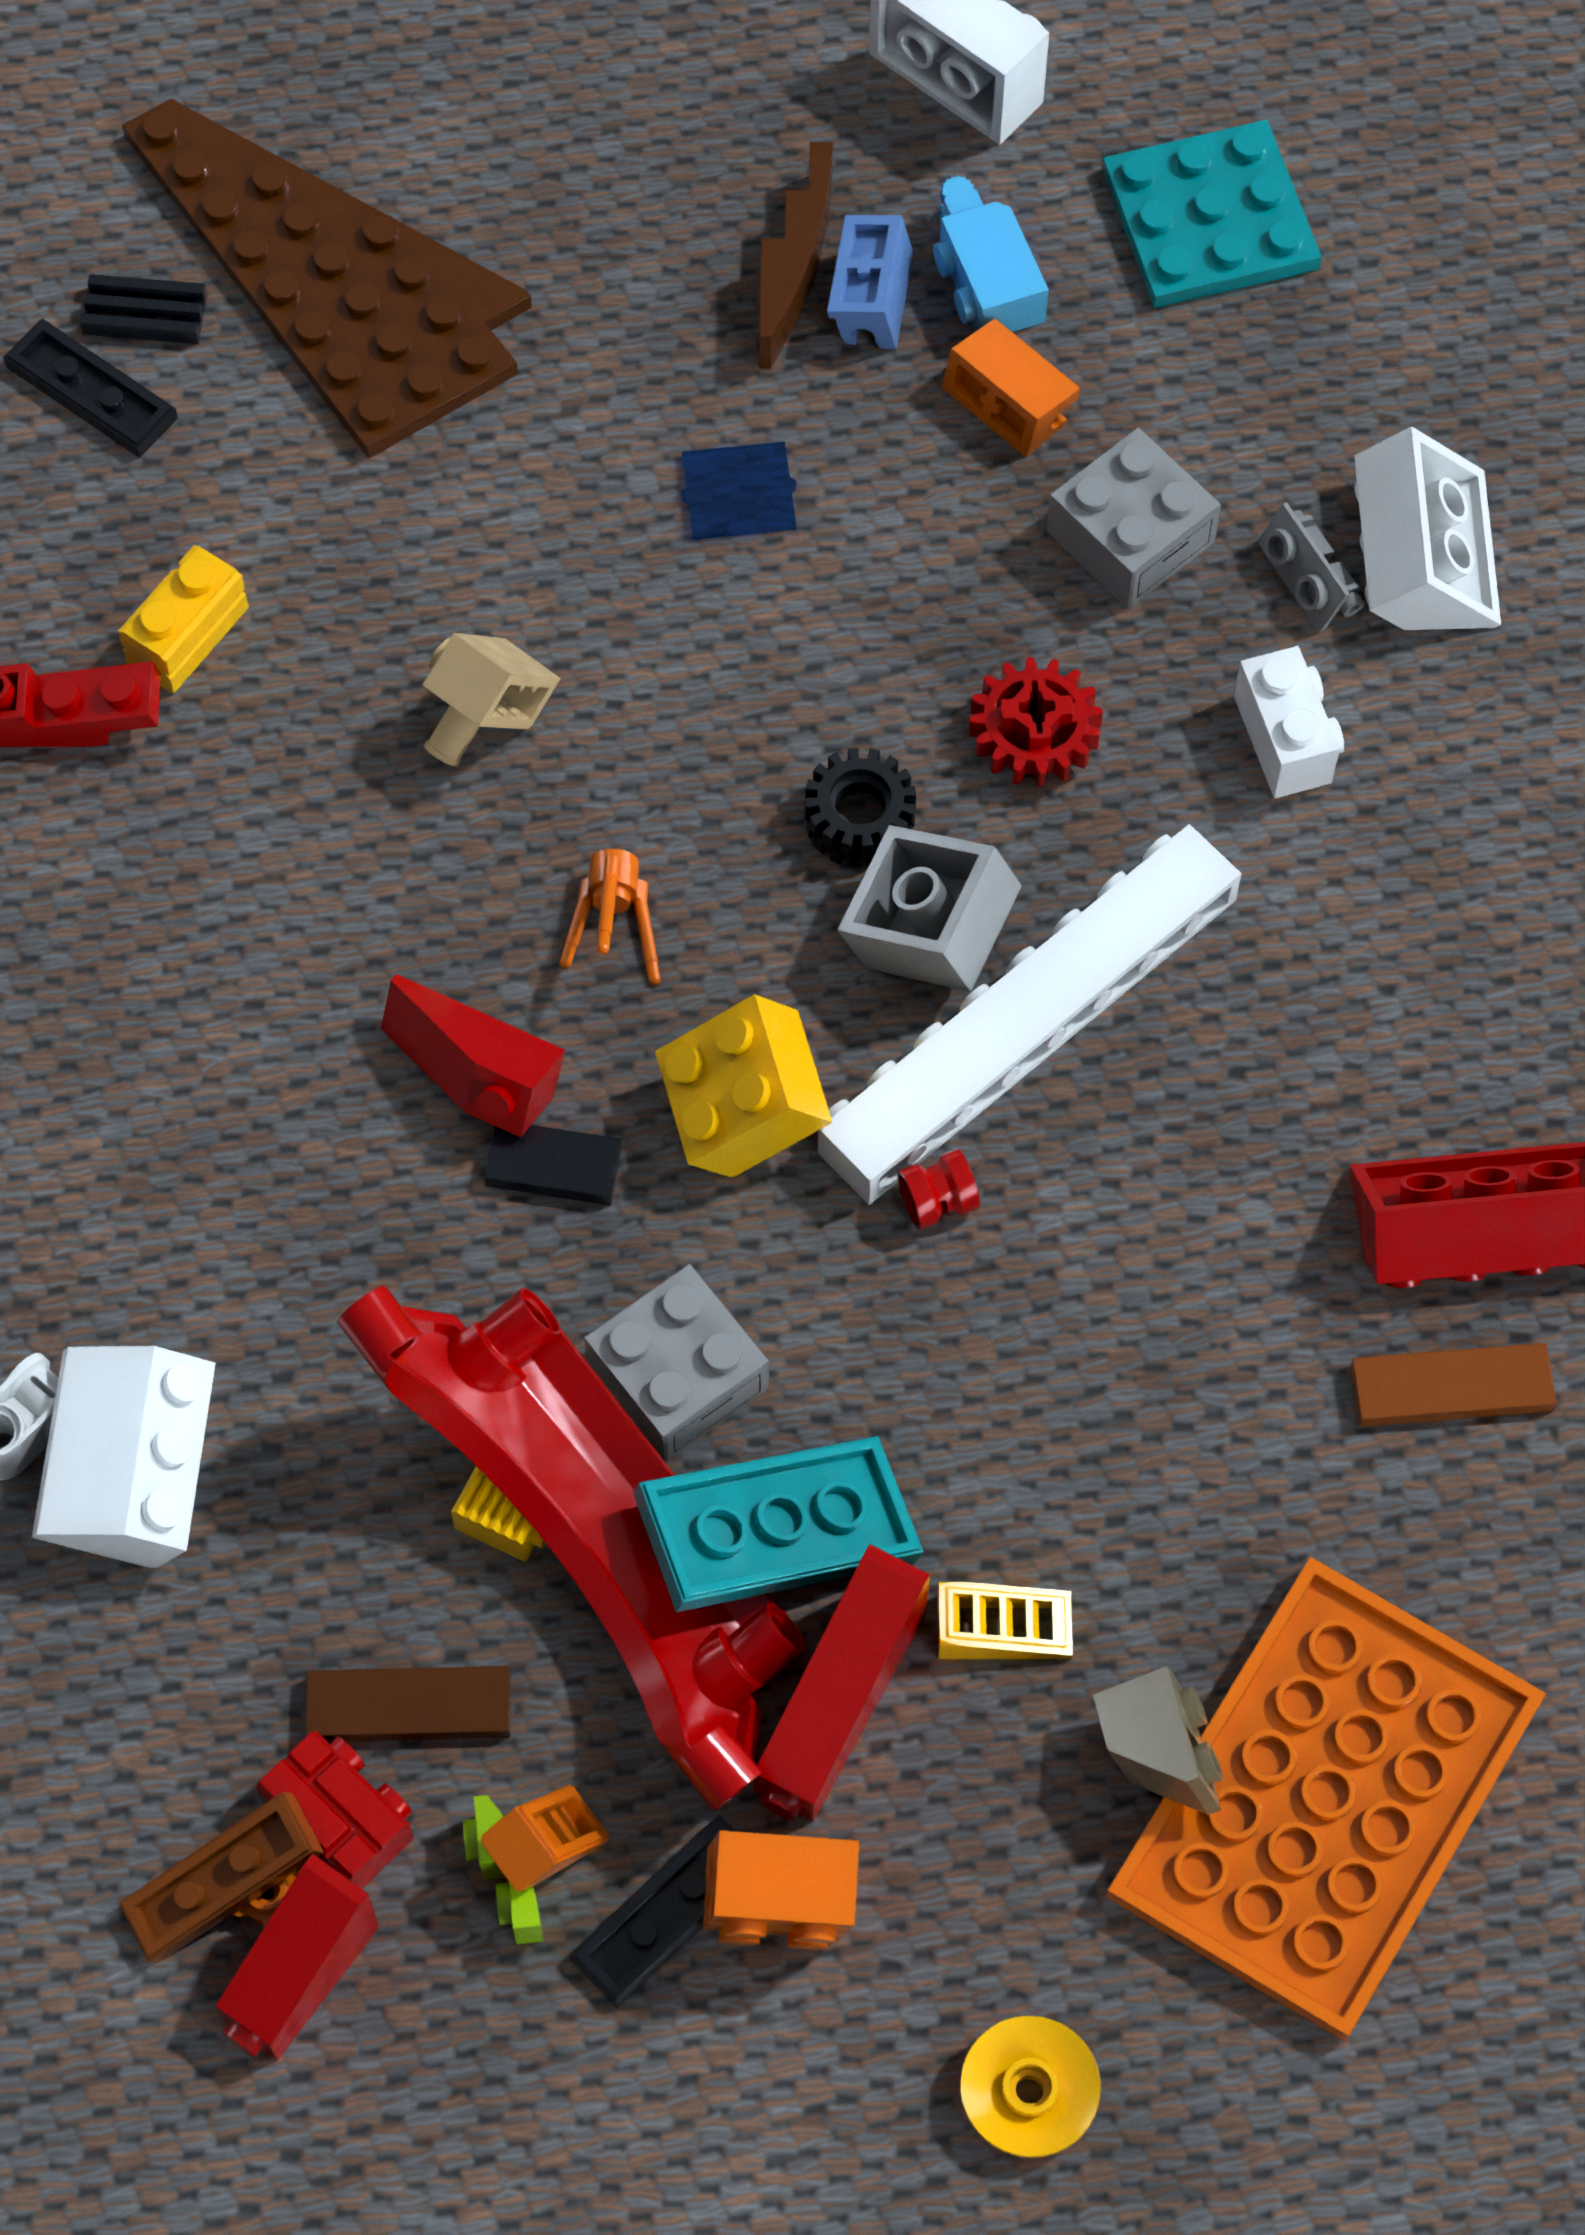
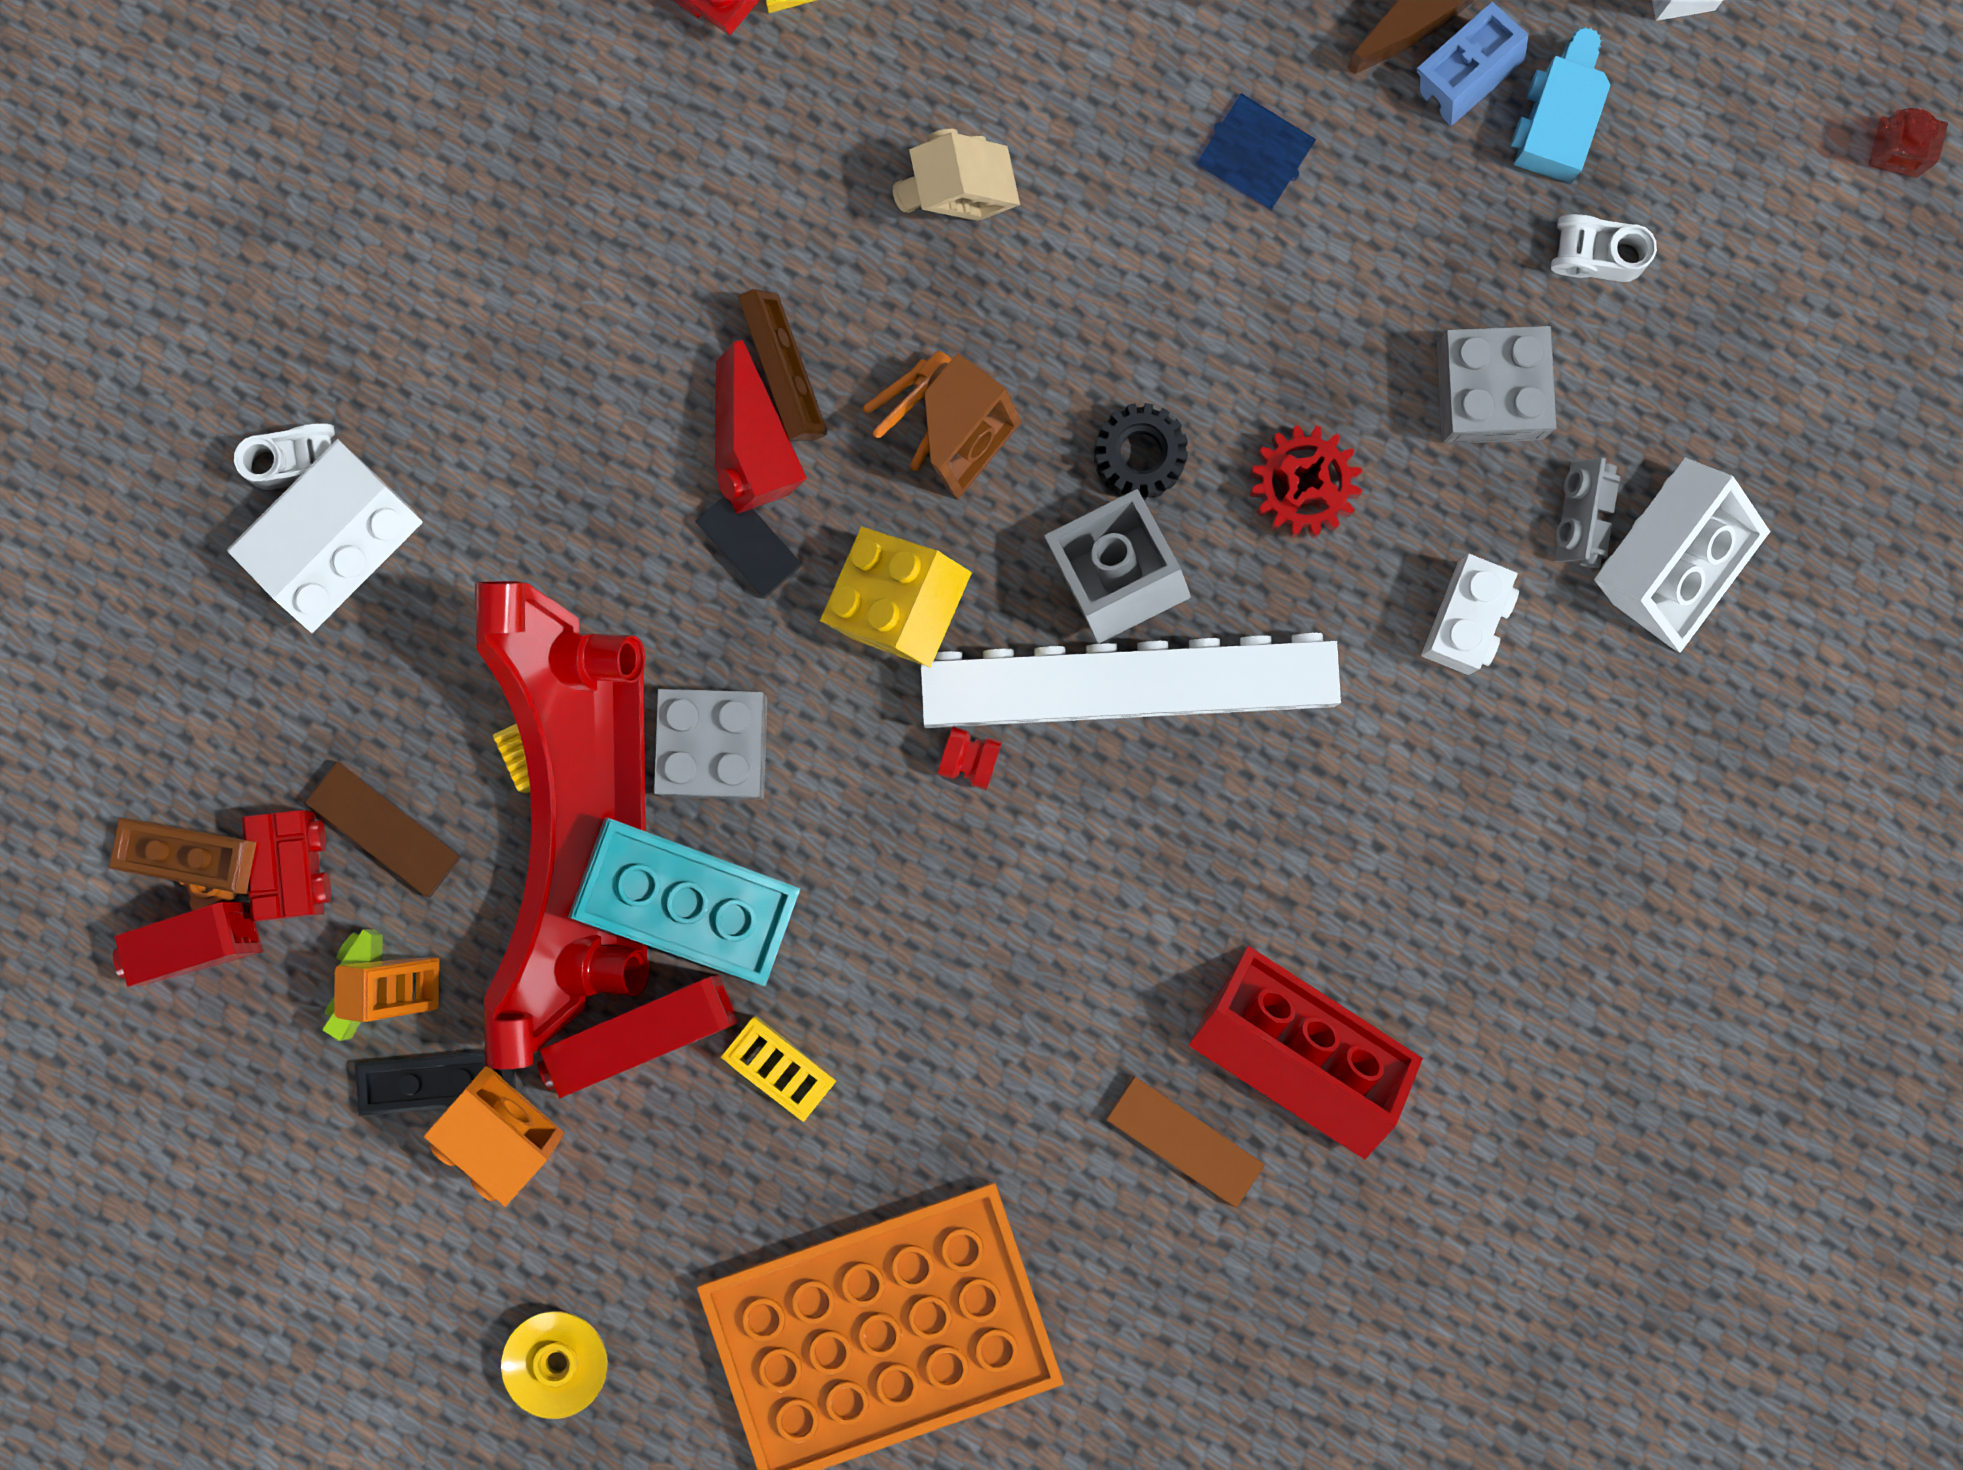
camera: 35 degrees right, 20 degrees up
(453, 974) = (783, 365): none -> reddish brown tile
(675, 884) = (966, 422): none -> dark orange slope
(1009, 386) = (1499, 218): orange hinge -> none
(1115, 351) = (1597, 248): none -> white piece
(1156, 1738) = (799, 1224): dark tan slope -> none
(1211, 213) = (1754, 190): teal plate -> none
(1304, 67) = (1908, 134): none -> clear red brick

